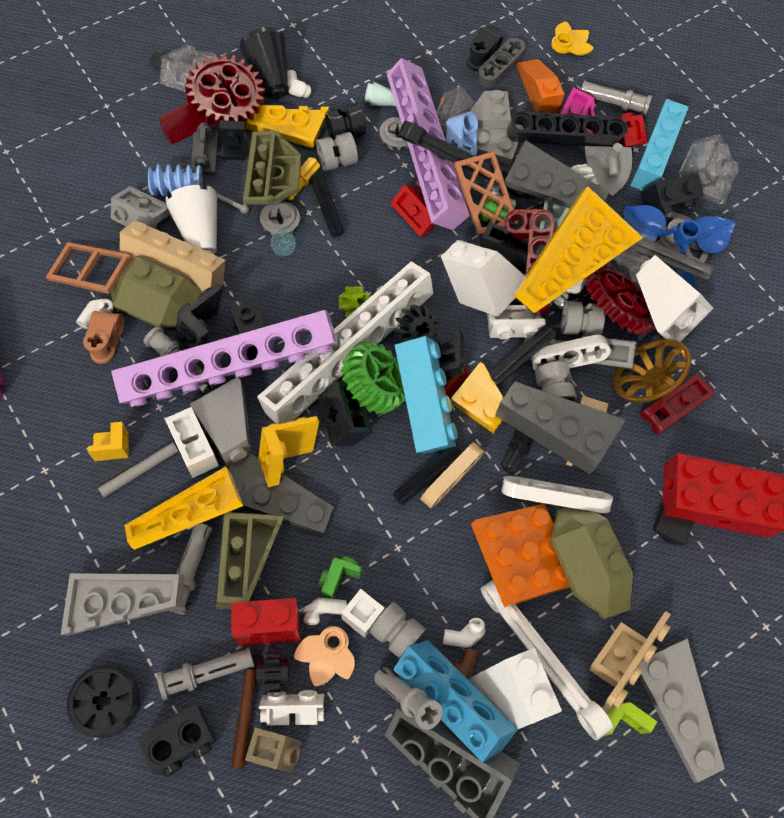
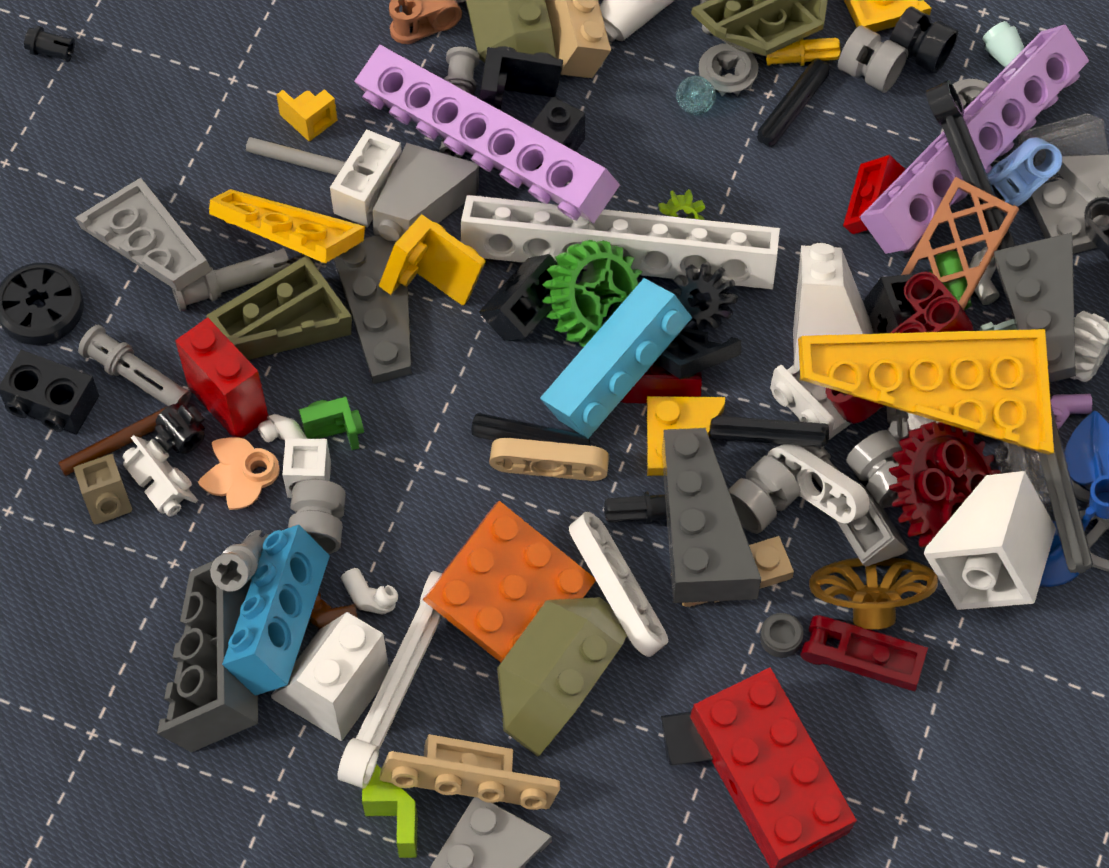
camera: 60 degrees right, 5 degrees down
(637, 436) = (781, 635): none -> dark grey tile

